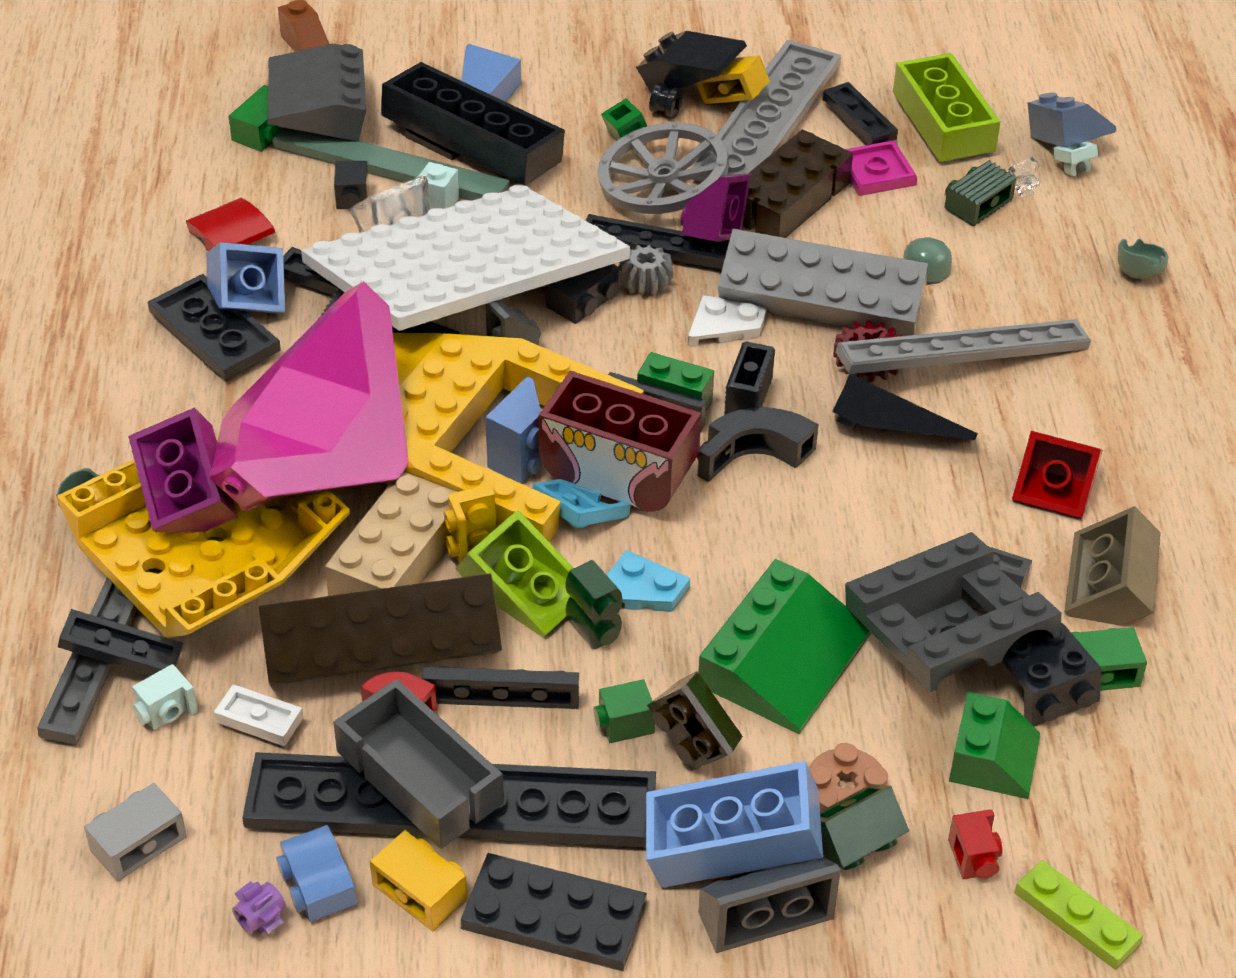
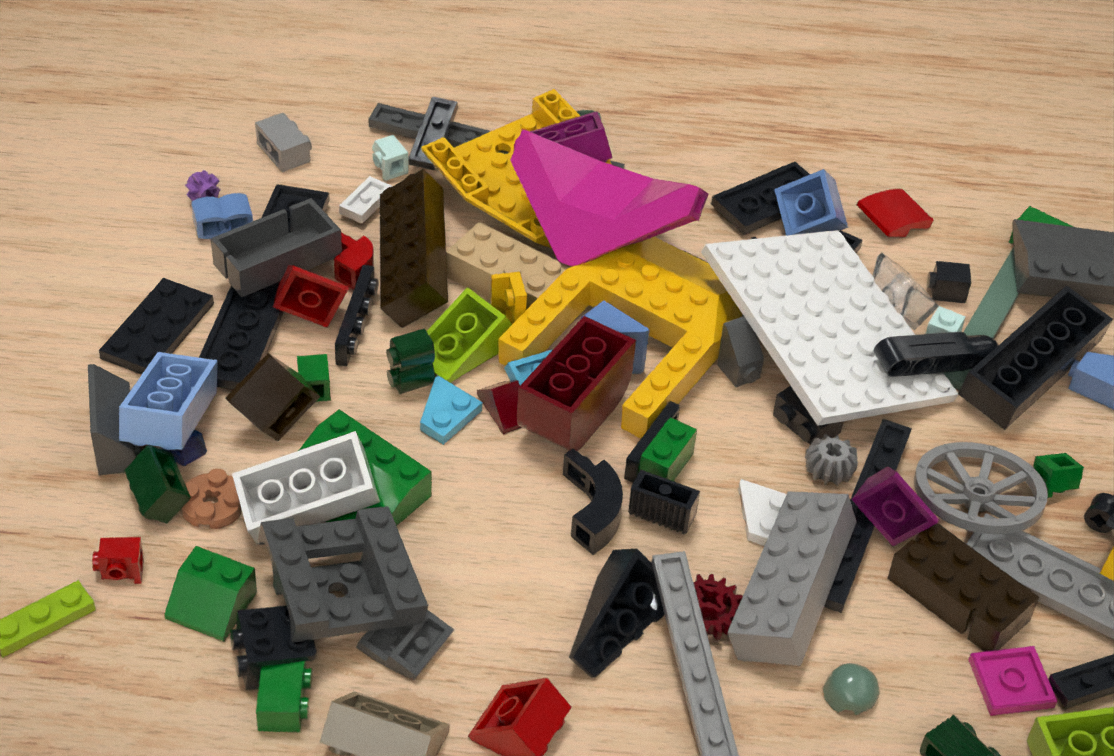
camera: 95 degrees right, 0 degrees up
(419, 879) = (192, 260): yellow brick -> none
(488, 716) = (309, 295): none -> red slope
(496, 182) = (932, 353): none -> black piece
(615, 531) = (502, 404): none -> dark red slope
(839, 661) = (307, 485): none -> white brick

